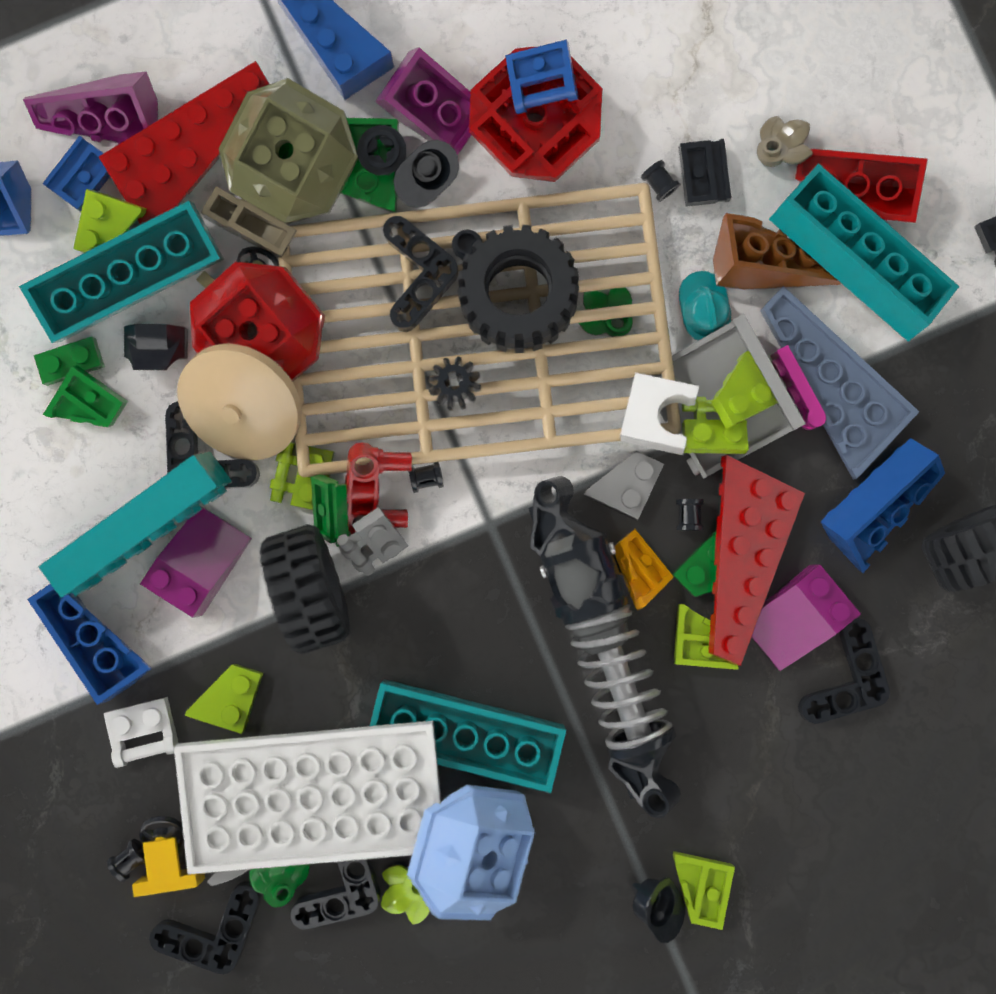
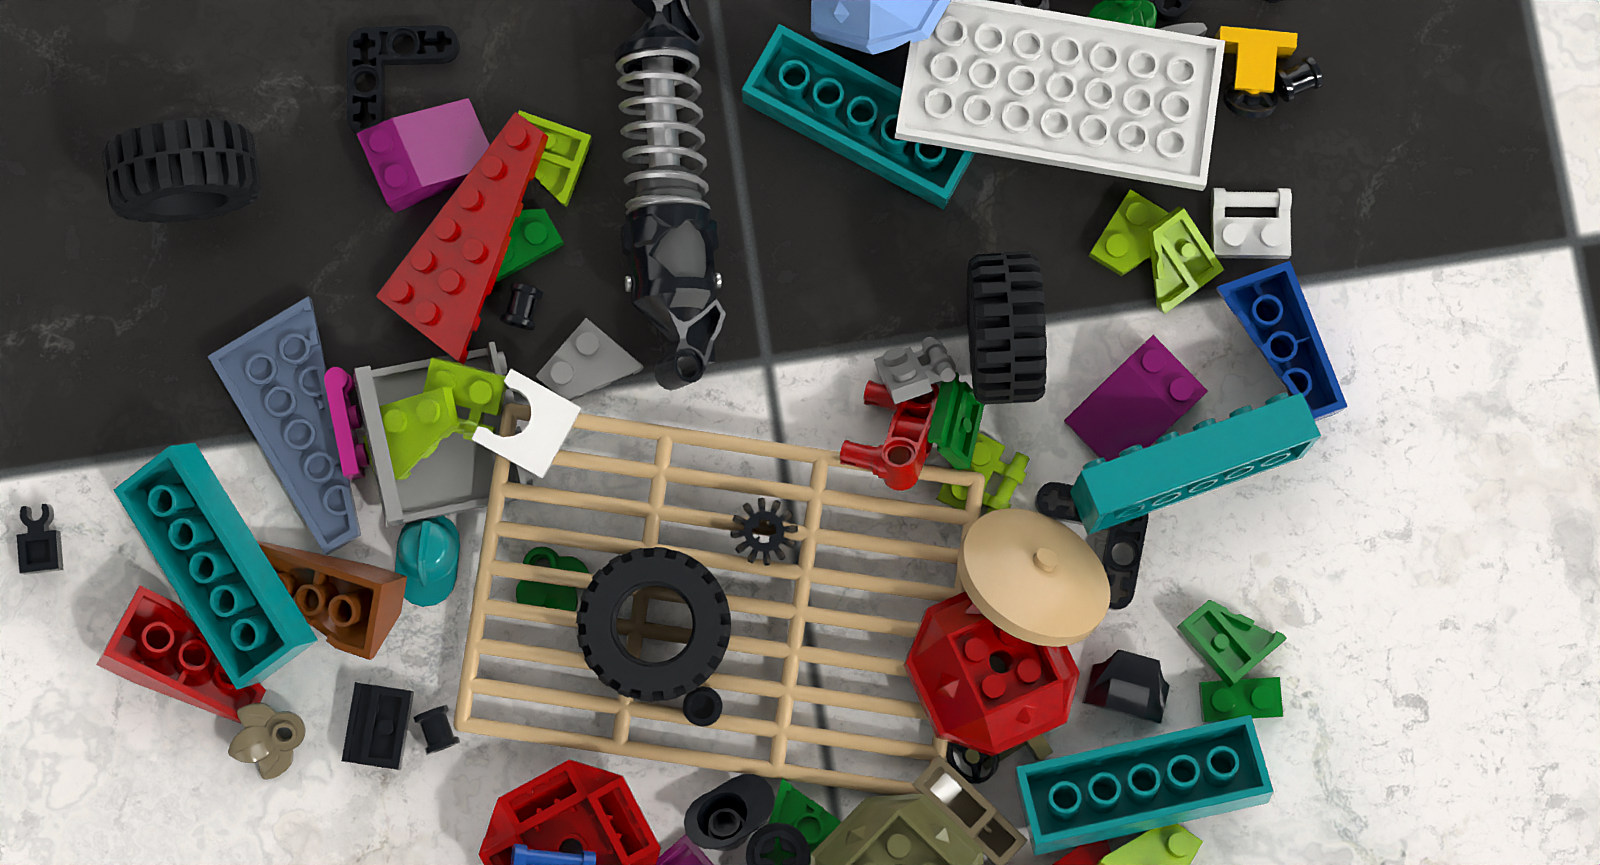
camera: 165 degrees left, 5 degrees down
(188, 686) = (1179, 259): none -> lime wing
(426, 477) = (829, 435): black bush -> none
(427, 265) = (758, 694): black beam -> none
(642, 569) = (599, 256): light orange wing -> none
(882, 502) = (286, 260): blue wedge -> none

